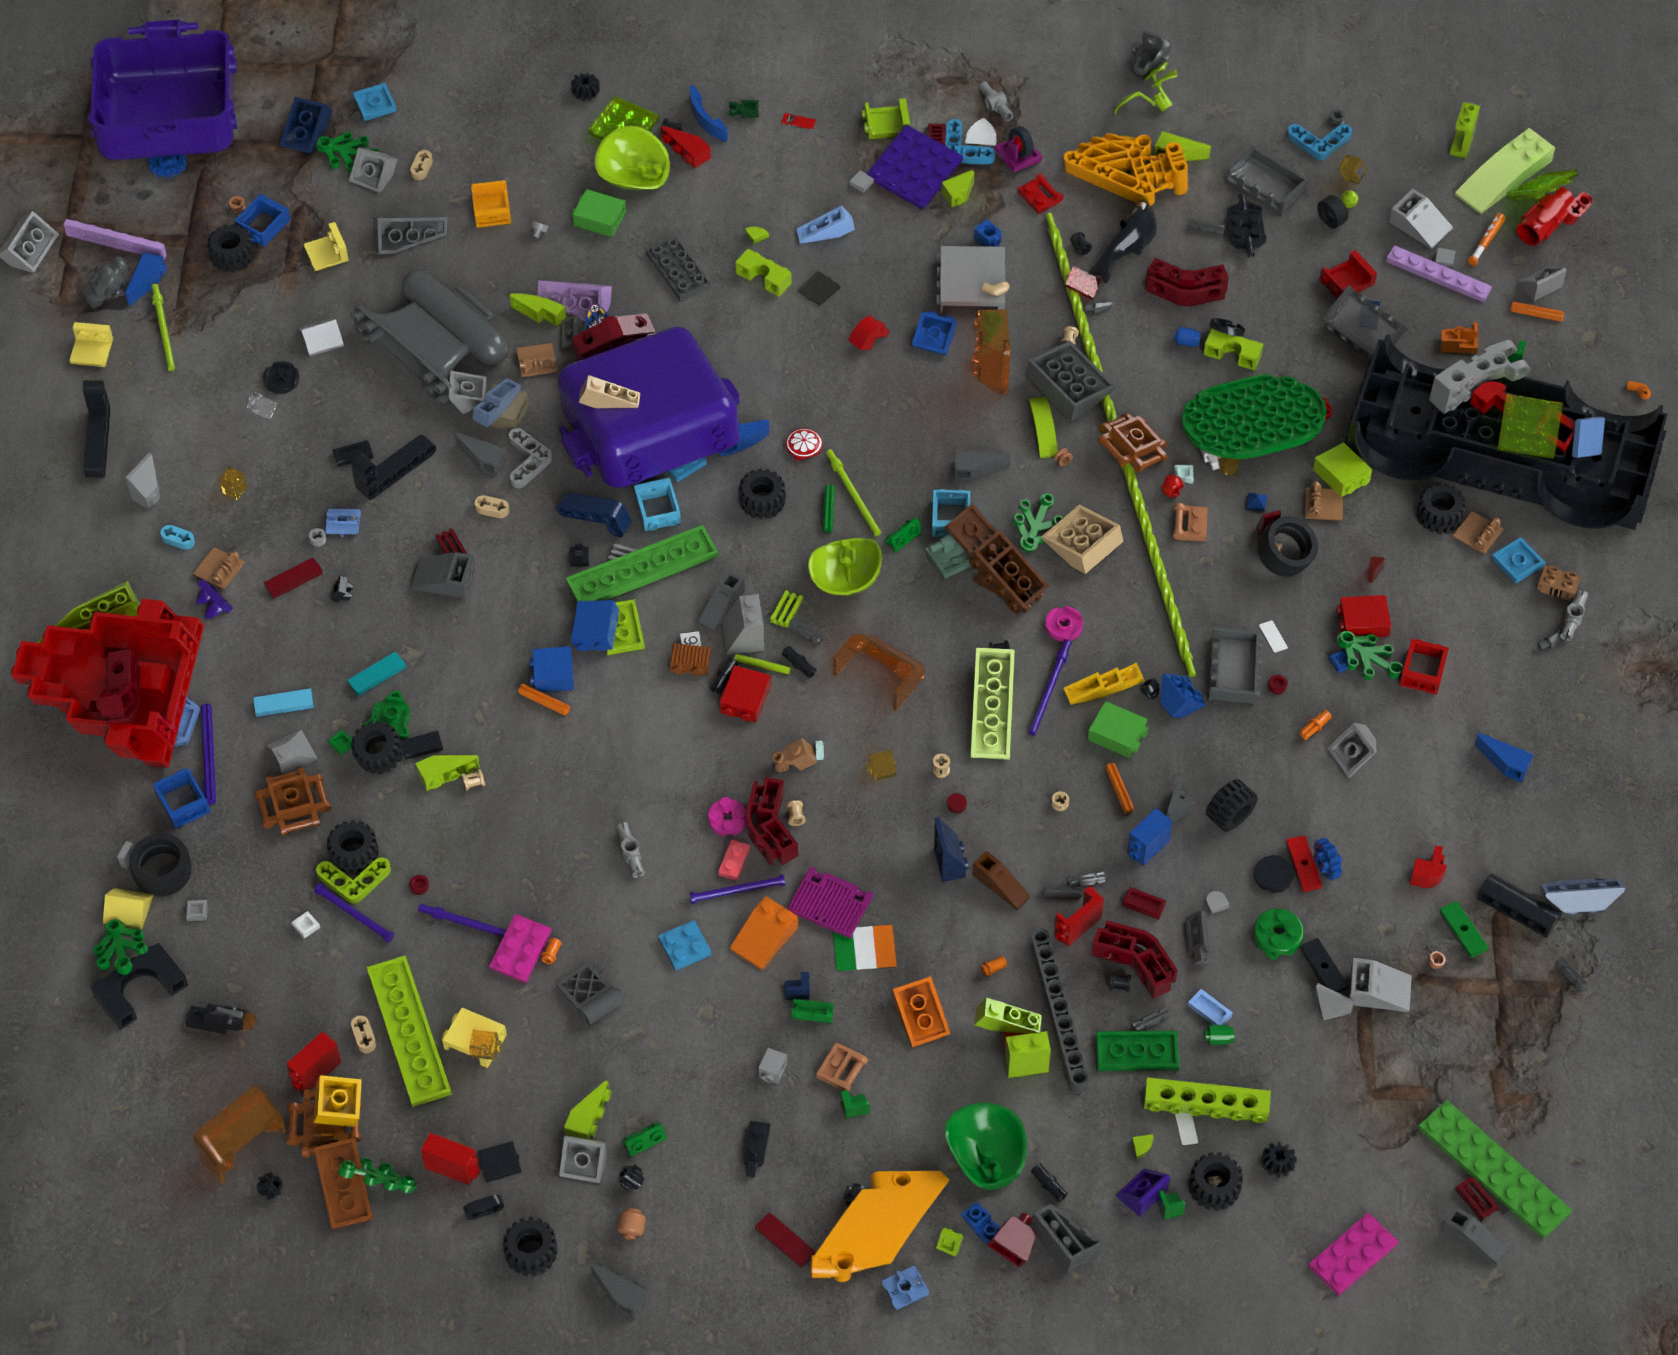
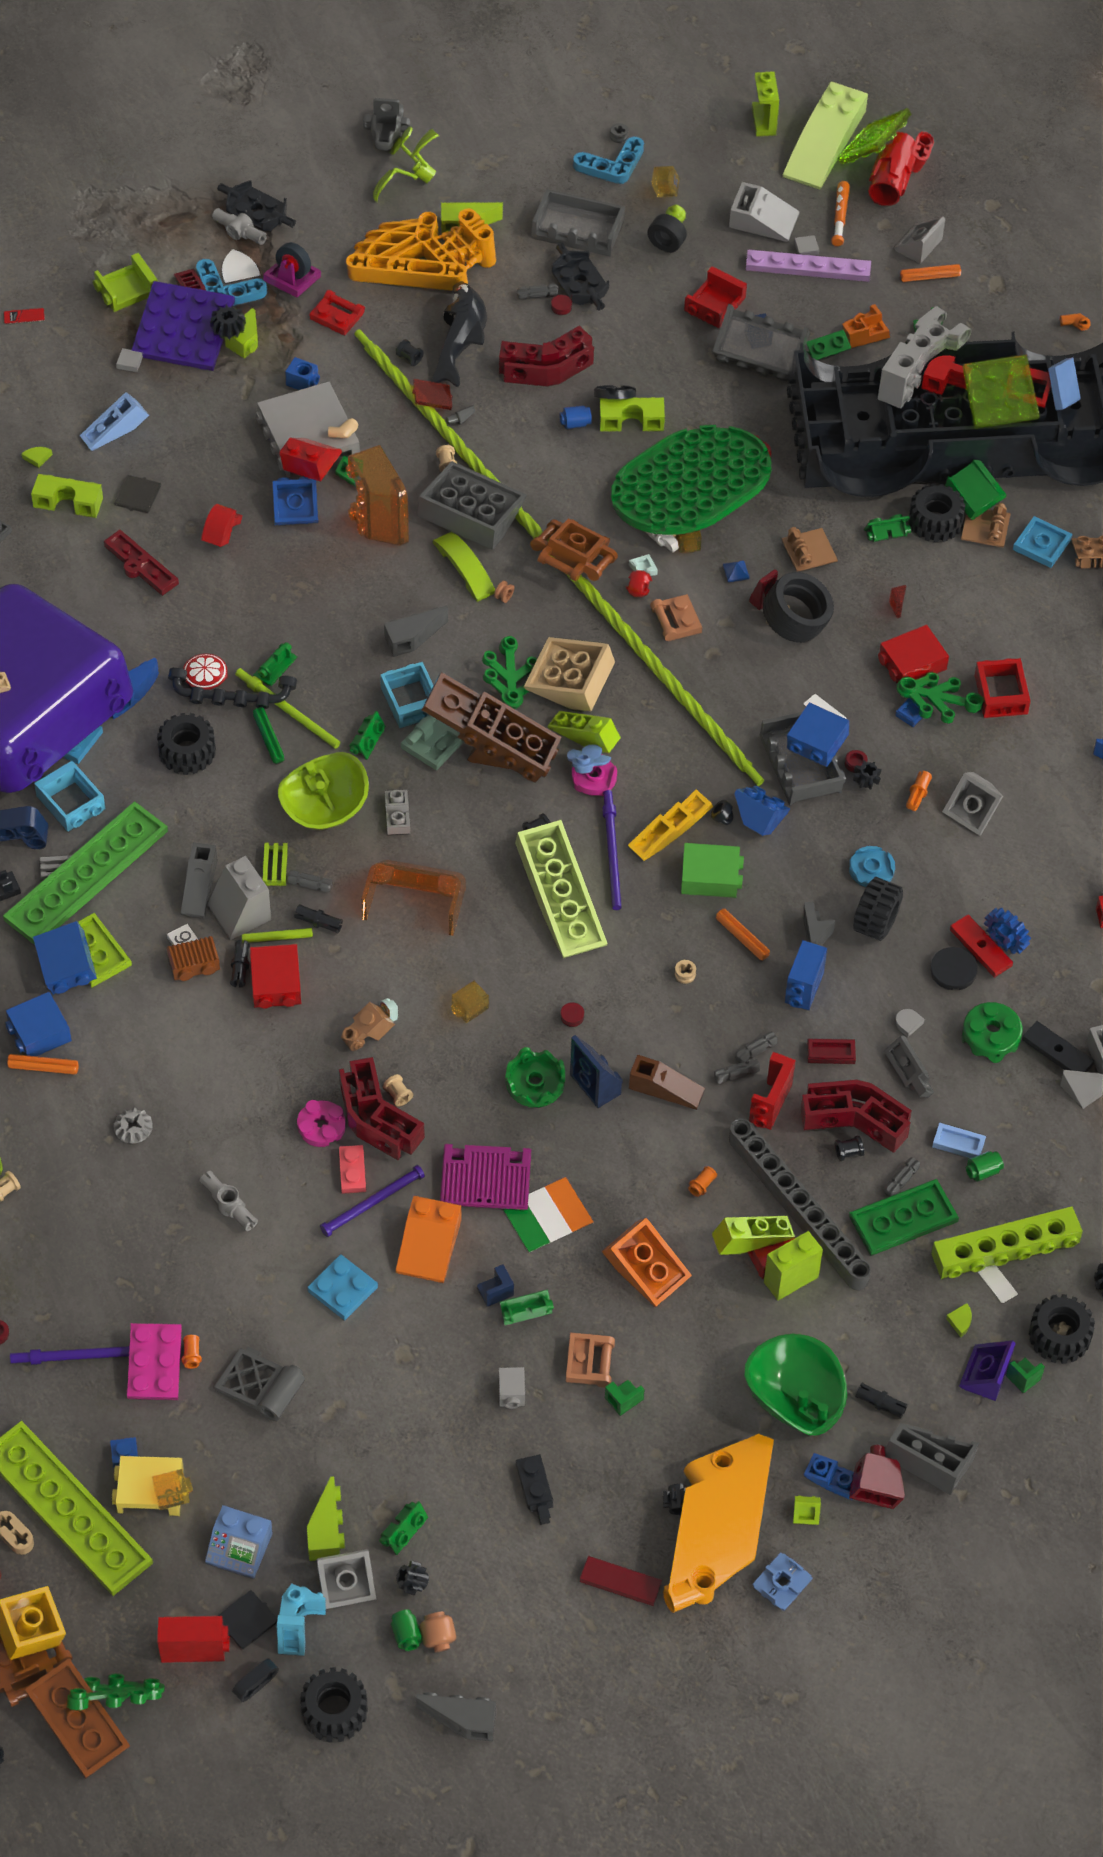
camera: 25 degrees left, 0 degrees up
(470, 1003) = (123, 1447): none -> blue plate
(519, 1102) = (238, 1541): none -> medium blue slope
(523, 1175) = (292, 1624): none -> medium azure tile
(585, 775) = (133, 1134): none -> light grey gear
(608, 1214) = (406, 1630): none -> green brick
(794, 343) = (140, 563): none -> dark red hinge
(819, 471) = (239, 697): none -> black bar
(860, 456) = (276, 664): none -> green hinge
(898, 601) = (397, 812): none -> light grey slope
(906, 830) = (540, 1065): none -> green plate
(938, 765) = (539, 977): tan bush -> none
(946, 175) = (227, 322): none -> black gear
(957, 301) = (308, 457): none -> red slope
(1013, 80) = (245, 198): none -> black plate
(1058, 610) = (587, 758): none -> medium blue plate
(1074, 587) = (586, 729): none -> lime slope
(1221, 243) = (561, 304): none -> dark red tile
(1249, 770) = (871, 863): none -> dark azure tile
(1250, 652) = (817, 734): none -> blue piece
(1282, 702) = (867, 774): none -> black gear
(1342, 469) = (813, 506): lime brick -> none
(1388, 506) = (896, 525): none -> green hinge
(1420, 344) = (828, 345): none -> green hinge
(1481, 499) = (977, 488): none -> green slope

